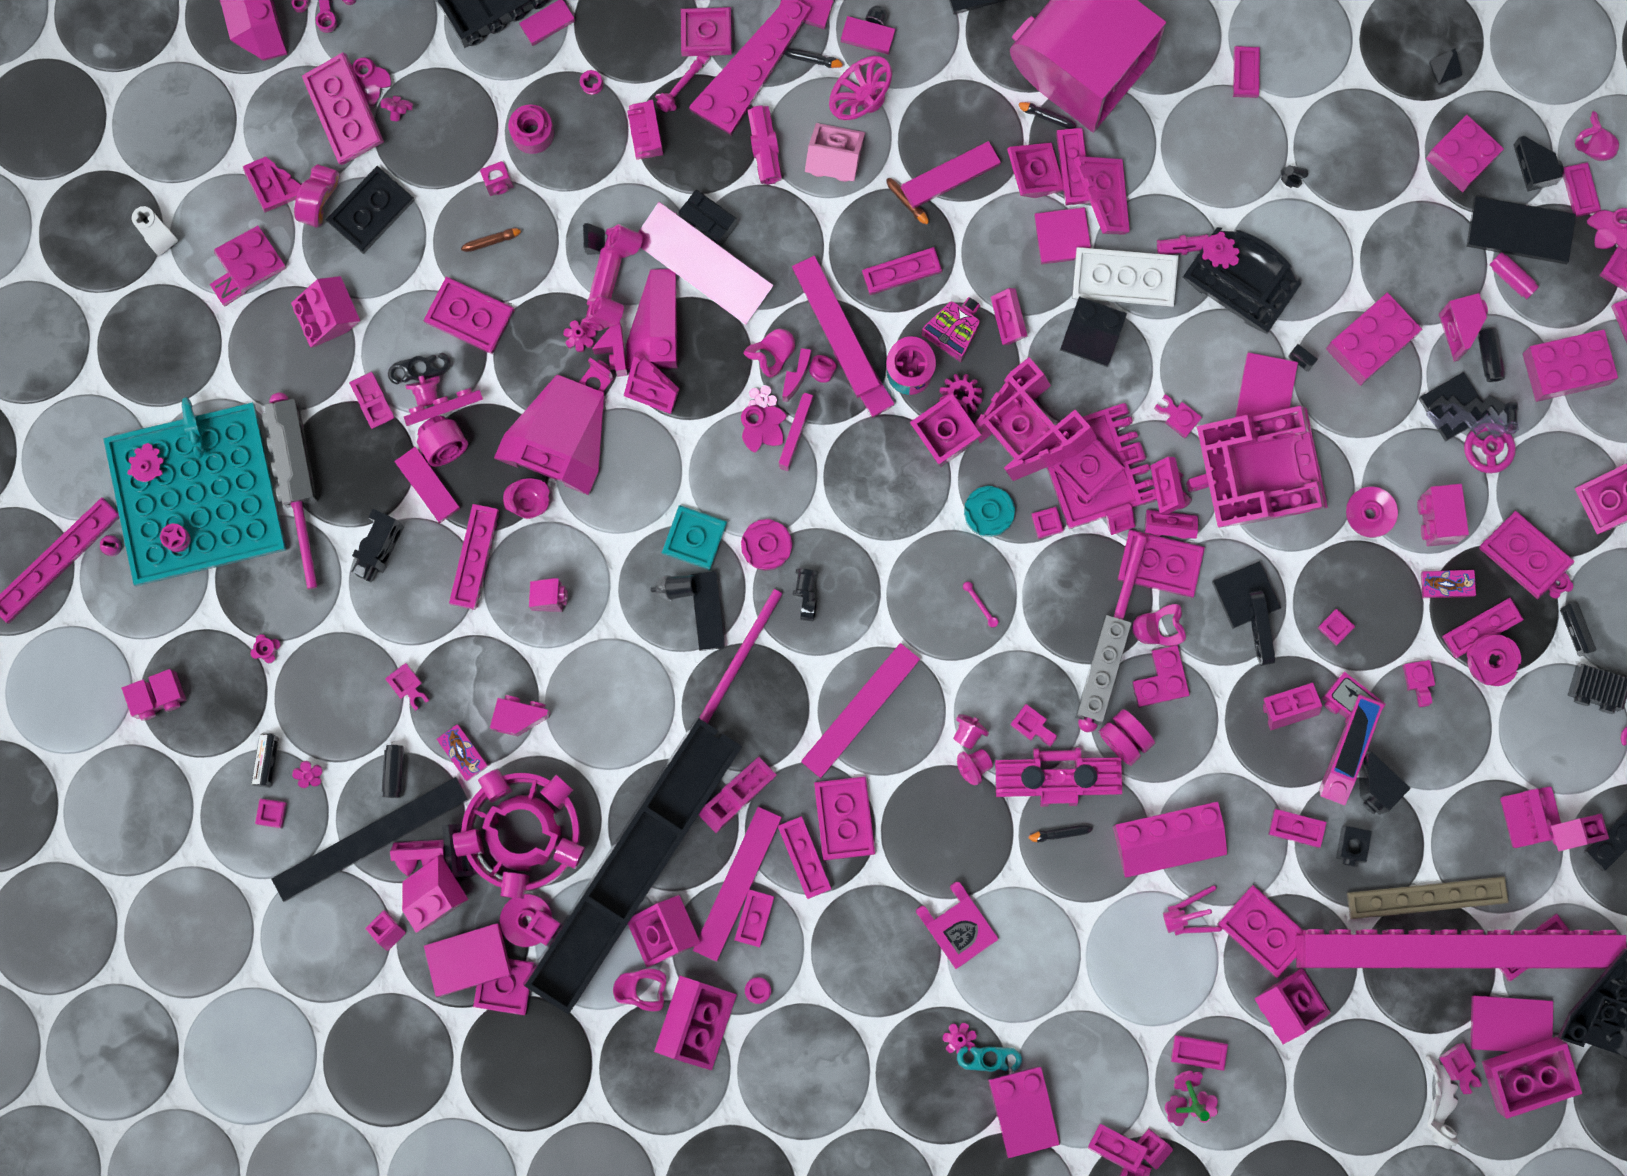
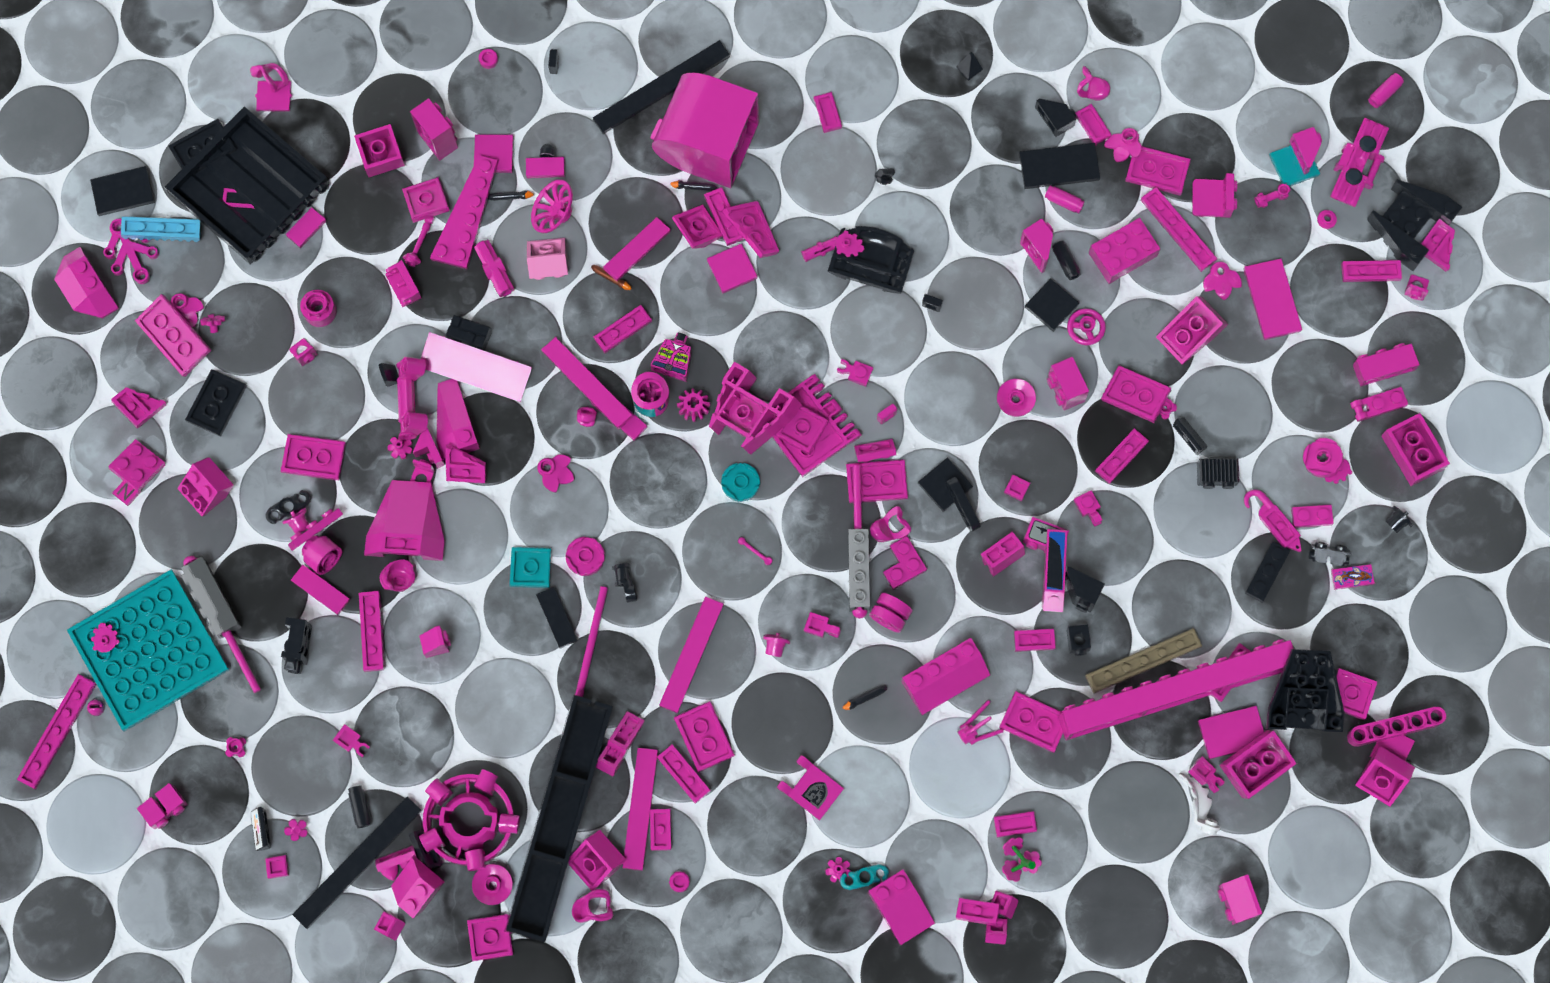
camera: 20 degrees left, 5 degrees down
(154, 232) = (60, 467): white piece -> none
(170, 535) = (141, 682): dark pink wheel -> none
(192, 427) = (132, 600): teal piece -> none
(314, 194) = (171, 404): dark pink animal -> none
(371, 400) = (259, 540): dark pink slope -> none
(462, 752) = (406, 777): tile -> none
(467, 960) = (457, 927): dark pink tile -> none
(507, 234) = (313, 397): copper piece -> none
(517, 718) = (438, 739): dark pink slope -> none
(542, 927) = (506, 885): dark pink tile -> none
(596, 87) = (357, 264): dark pink bush -> none
(676, 587) = (528, 606): black piece -> none
(695, 1023) = (640, 919): dark pink slope -> none
(761, 397) = (548, 451): plant -> none
(779, 344) = (551, 409): dark pink piece -> none
(794, 380) = (569, 430): dark pink slope -> none
(795, 431) = (581, 467): dark pink tile -> none
(945, 430) = (690, 432): dark pink slope -> none
(974, 765) = (786, 668): dark pink piece -> none
(1009, 316) = (711, 337): dark pink plate -> none
(1047, 523) = (785, 477): dark pink tile -> none
(1058, 786) = (851, 663): dark pink piece -> none
(1093, 331) = (775, 330): black slope -> none
(1120, 519) = (837, 458): dark pink tile -> none
(1125, 277) = (786, 284): white tile -> none
(1168, 486) = (864, 424): dark pink tile -> none
(1262, 467) = (927, 389): dark pink slope -> none
(1265, 385) = (914, 337): dark pink tile -> none
(1292, 1006) = (1071, 768): dark pink slope -> none
(1373, 339) = (978, 274): dark pink brick -> none
(1448, 584) = (1087, 432): tile -> none
(1463, 415) = (1059, 306): piece -> none
(1464, 153) = (1001, 123): dark pink brick -> none
(1479, 656) = (1125, 475): dark pink plate -> none
(1530, 816) = (1199, 579): dark pink bracket -> none
(1579, 832) = (1235, 578): dark pink brick -> none

